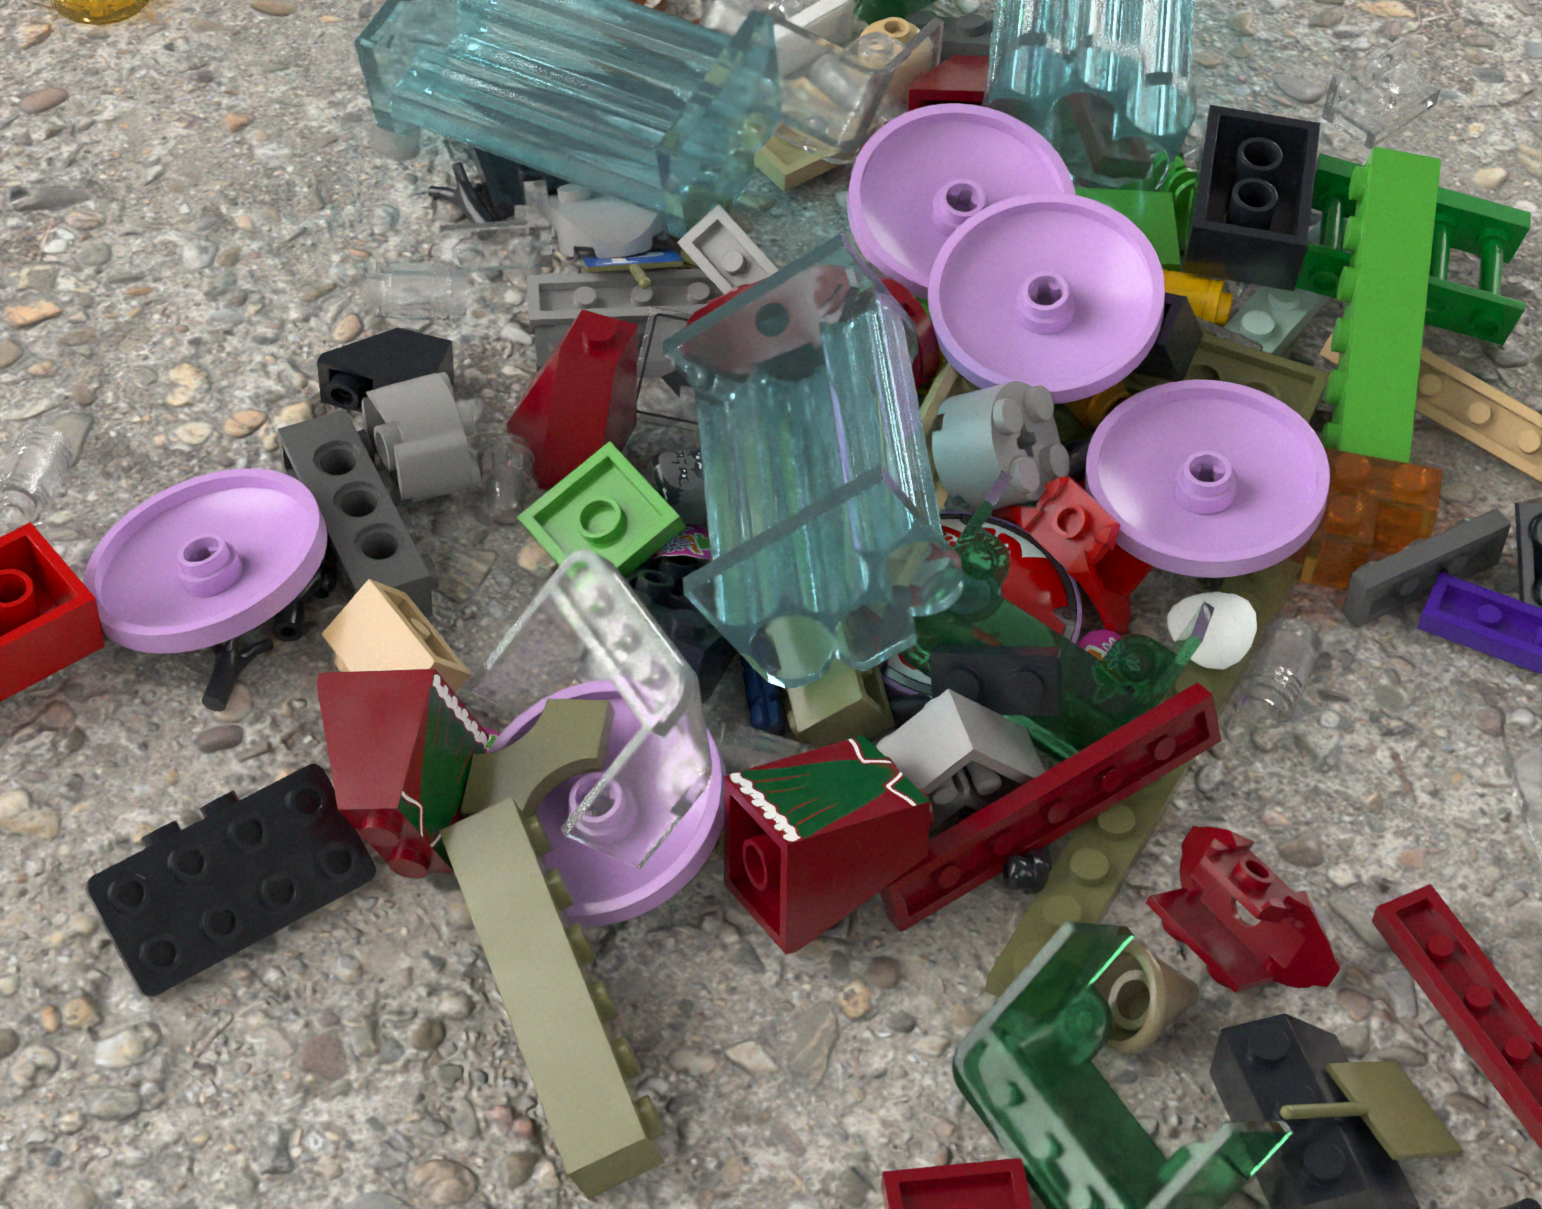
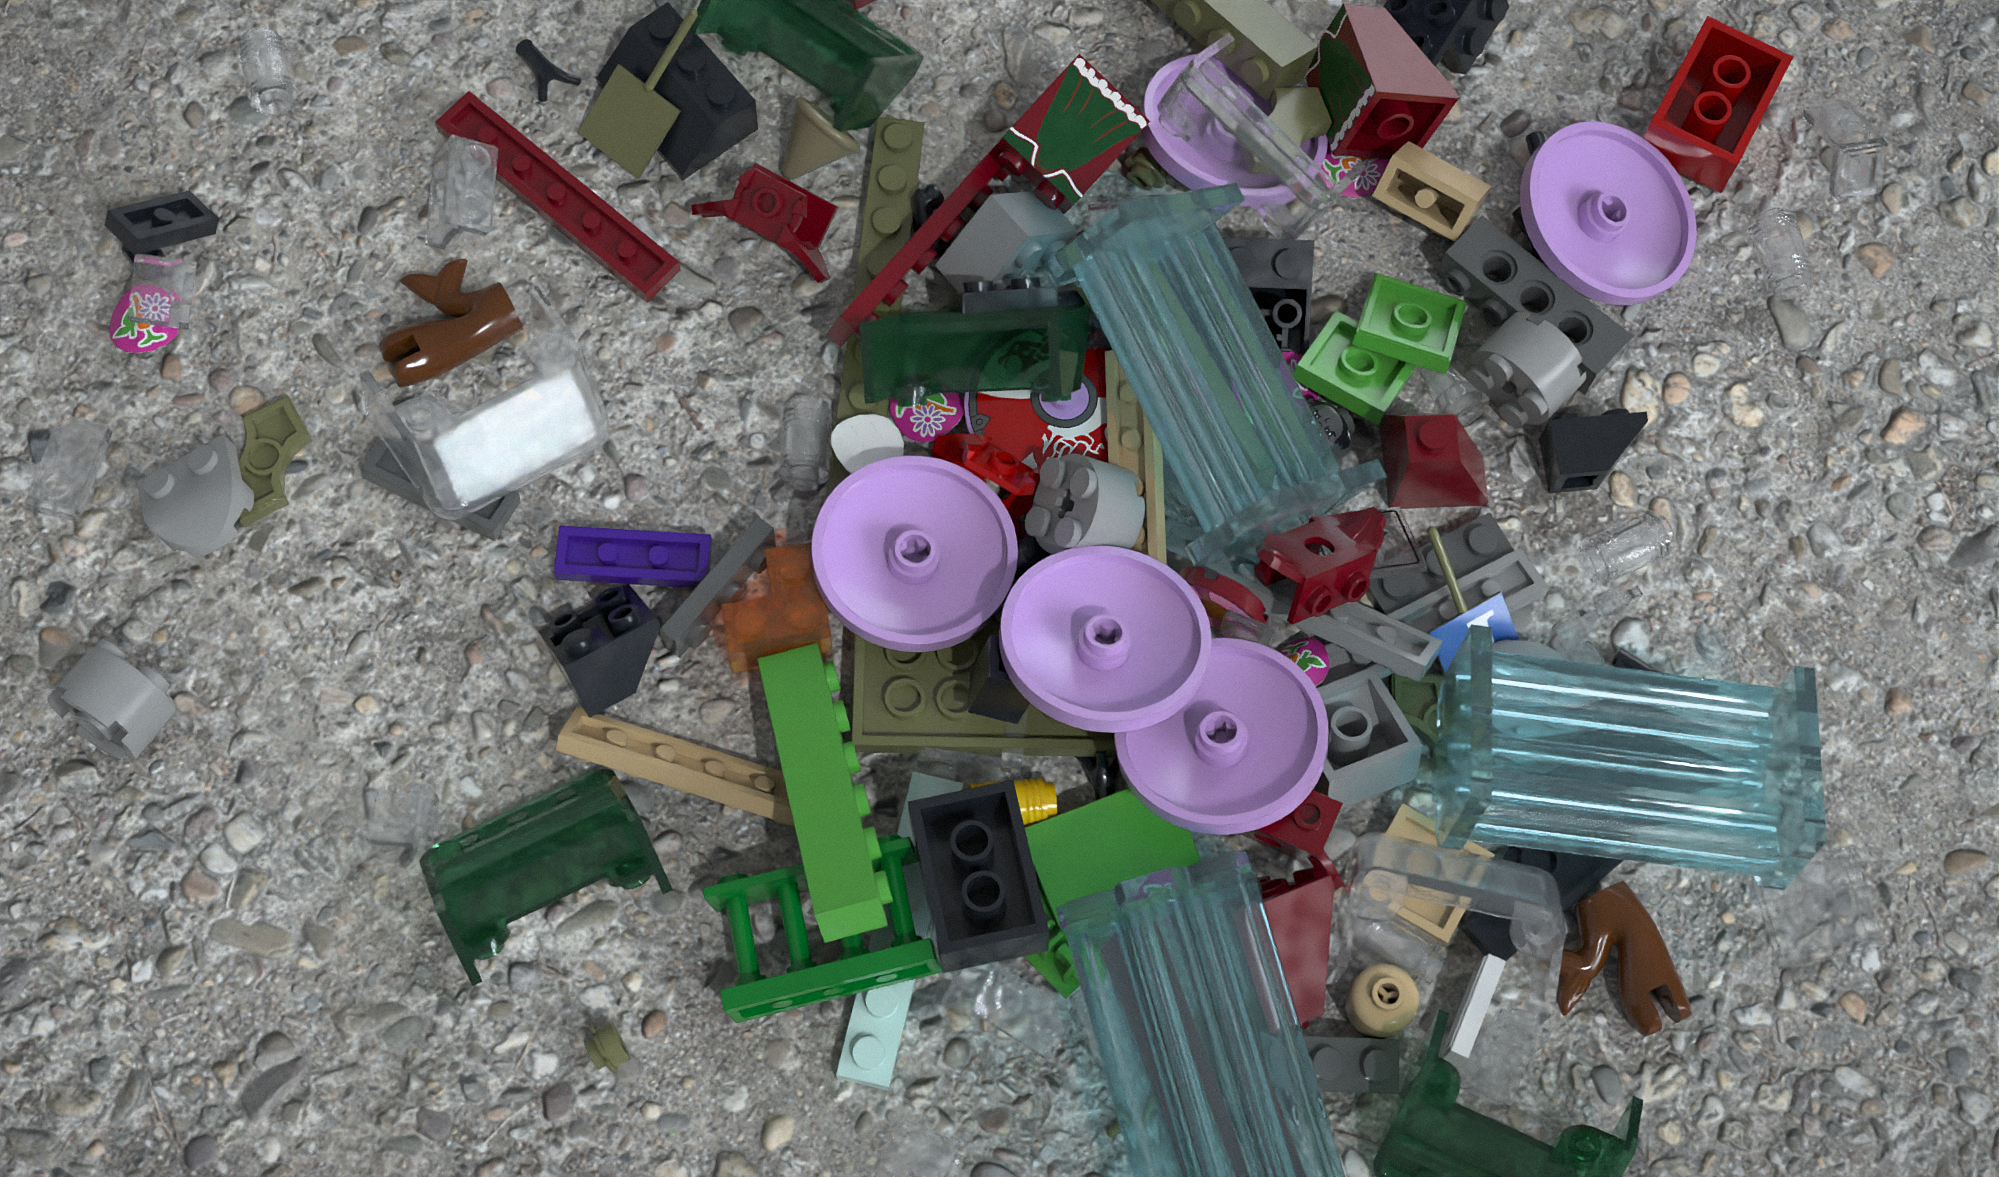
camera: 155 degrees right, 20 degrees up
(507, 546) = (1410, 323): none -> bright green tile
(800, 208) = (1367, 740): none -> light grey slope

